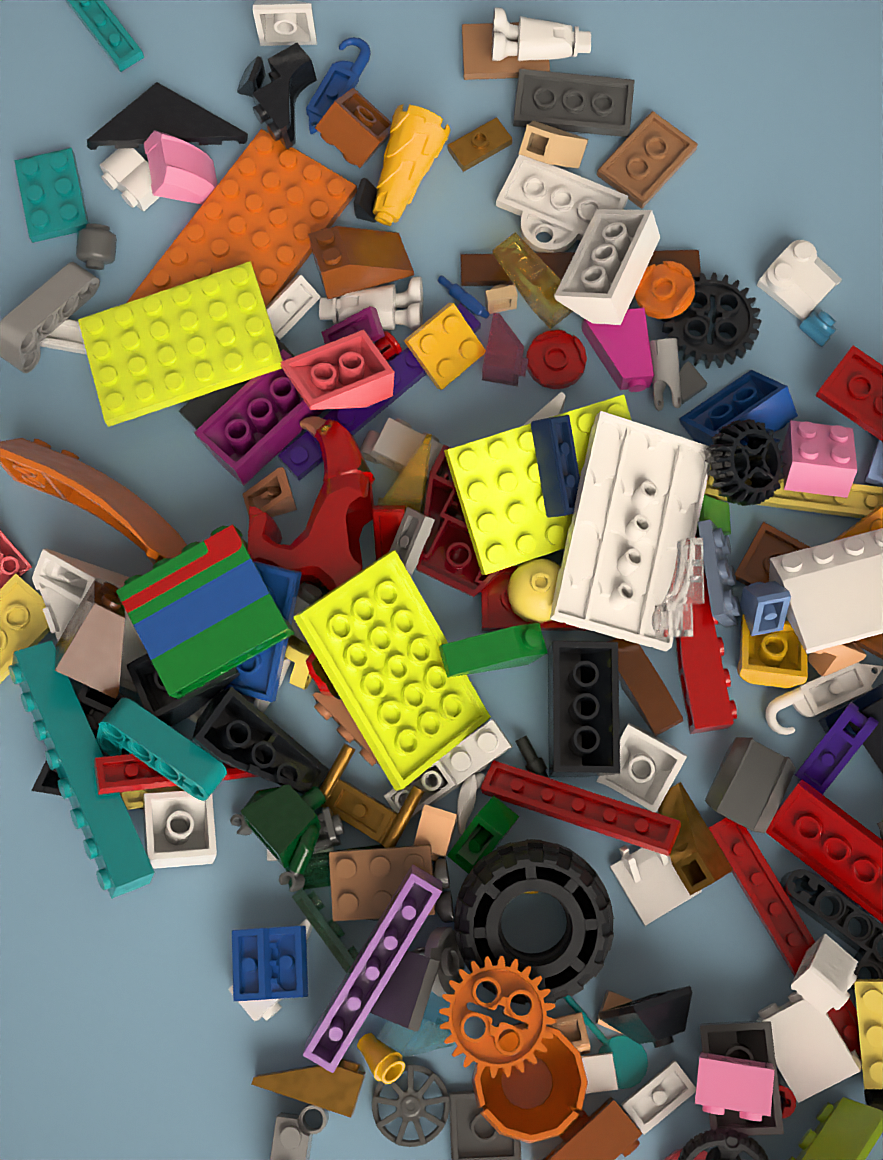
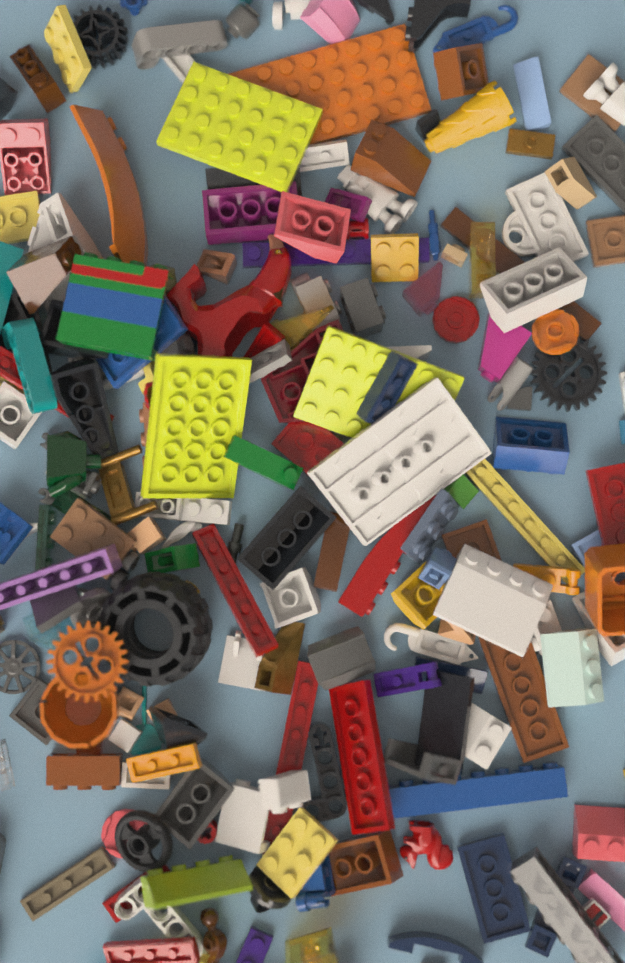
camera: 40 degrees right, 10 degrees up
(127, 215) = (277, 15): none -> white tile
(382, 1060) = (16, 633): yellow cone -> none
(442, 98) = (532, 94): none -> light blue slope
(456, 415) = (362, 309): none -> dark grey brick
(533, 589) = (316, 446): light yellow cylinder -> none
(669, 1062) = (164, 762): none -> light orange plate
(675, 614) = (380, 529): clear slope -> none
(734, 1085) = (181, 802): bright pink brick -> none
(736, 463) = (491, 471): black gear -> none
(819, 459) = (550, 510): bright pink brick -> none

